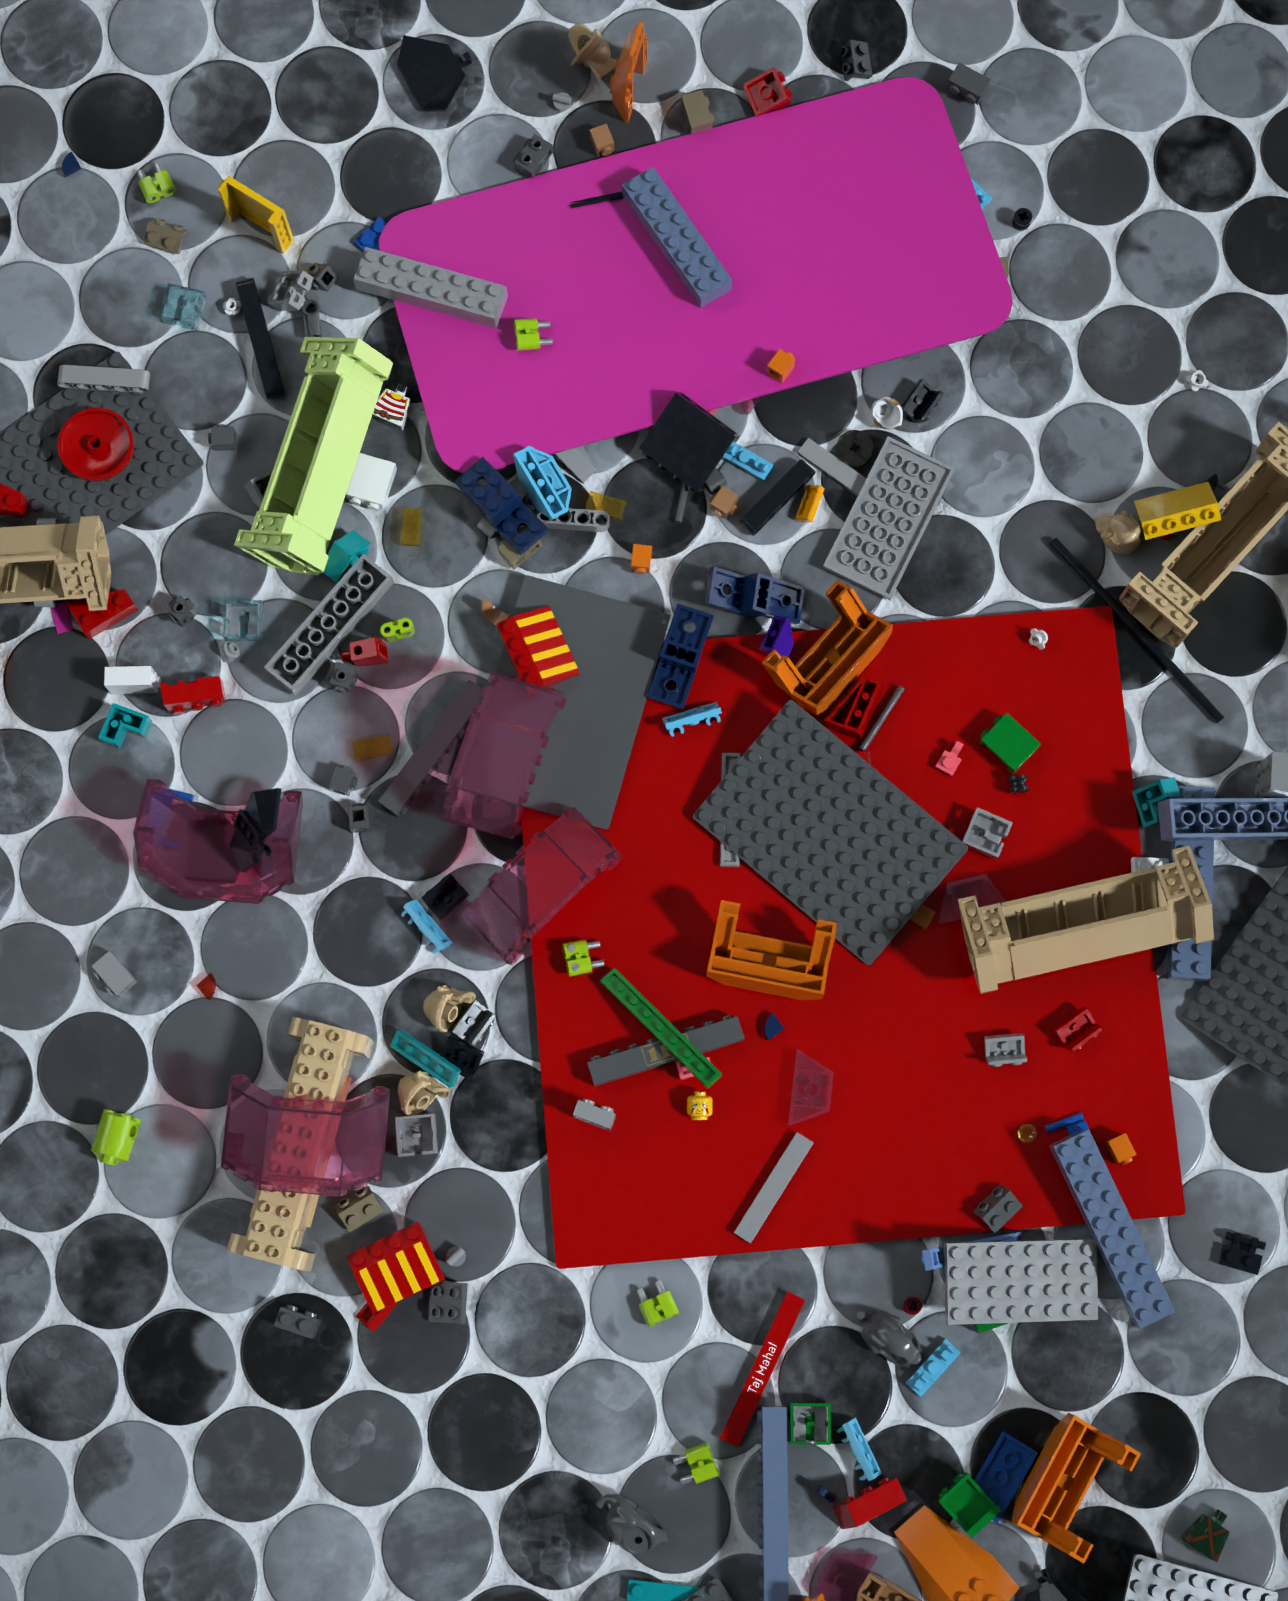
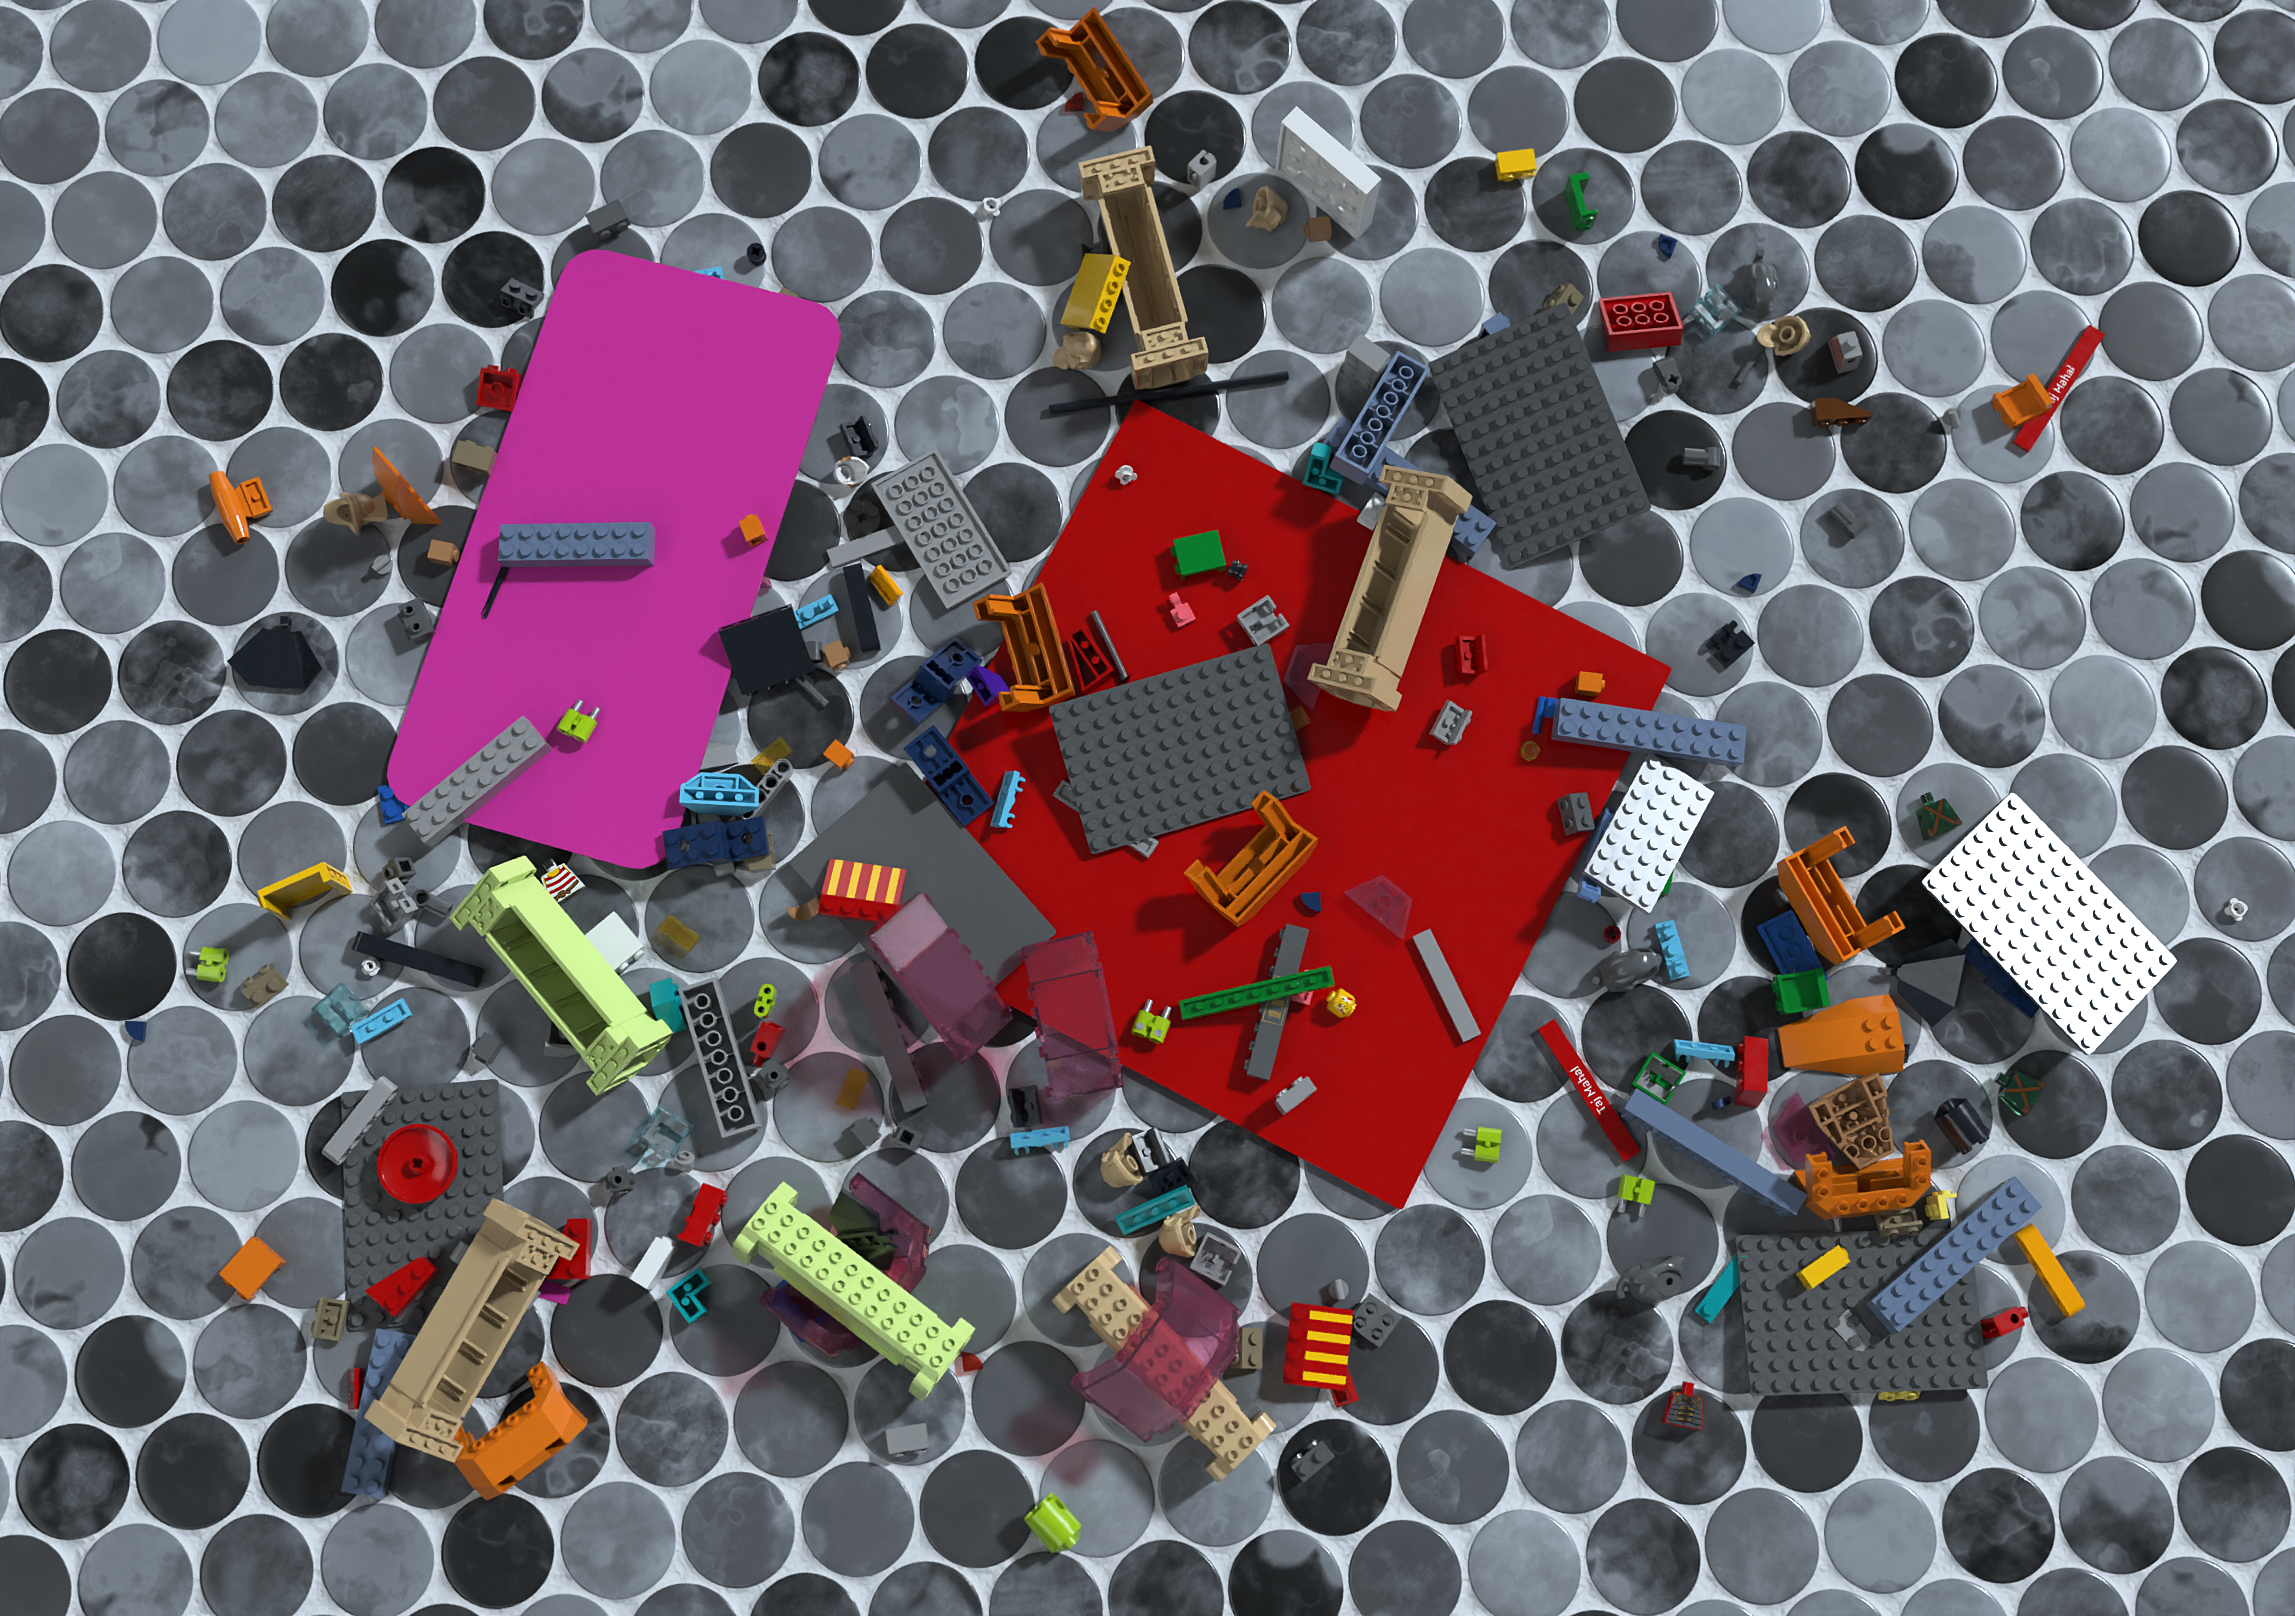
camera: 60 degrees left, 0 degrees up
(192, 343) = (381, 1021): none -> medium azure plate
(201, 849) = (851, 1290): none -> yellowish green brick

